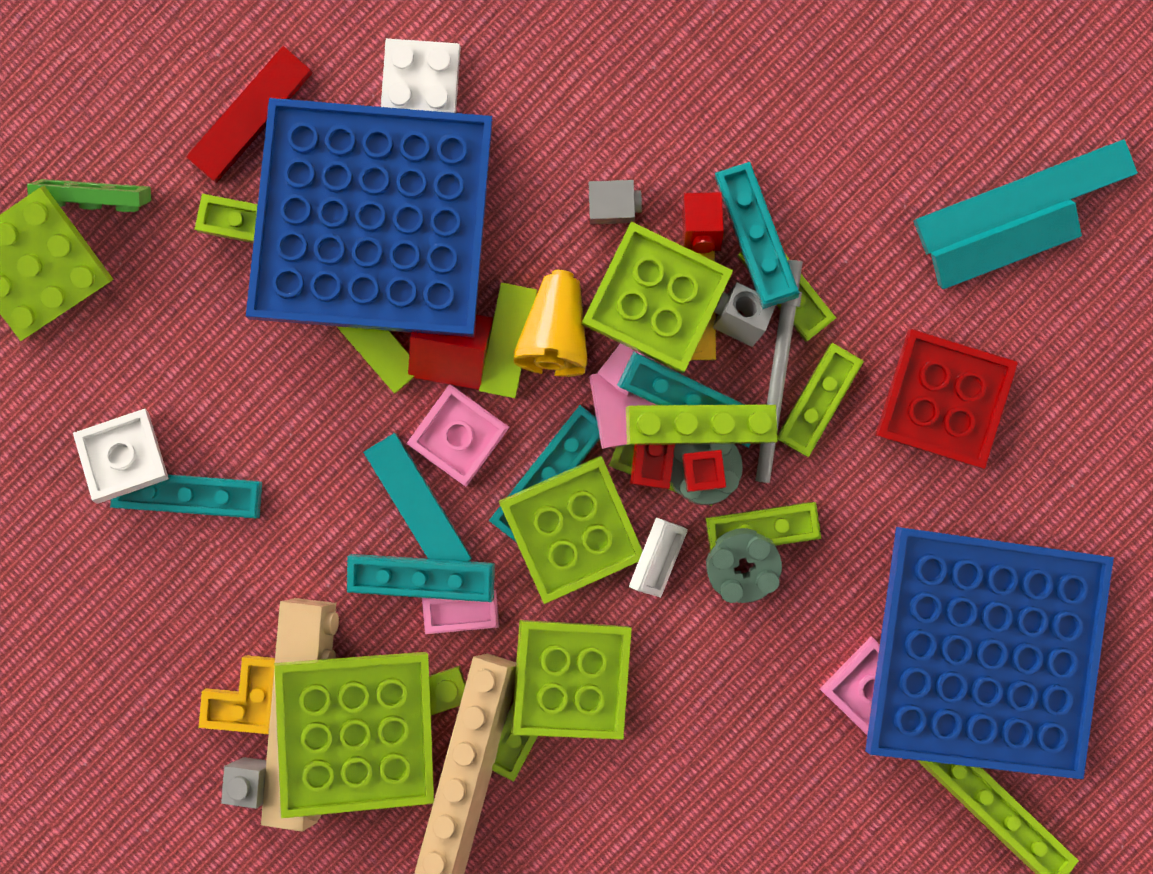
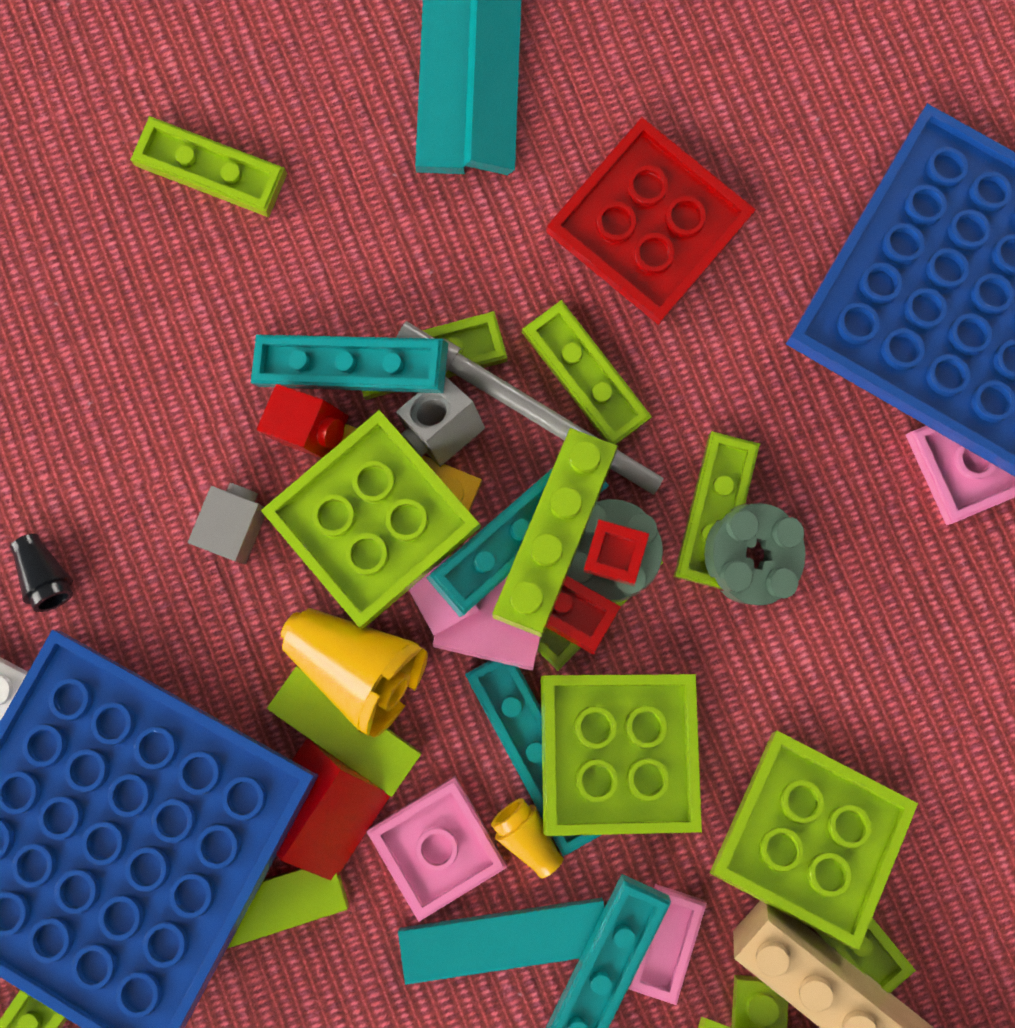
camera: 70 degrees left, 5 degrees down
(492, 486) = (521, 832): none -> yellow cone
(523, 91) = (40, 575): none -> black cone
(658, 557) = (701, 658): white tile -> none
(854, 74) = (209, 166): none -> lime tile

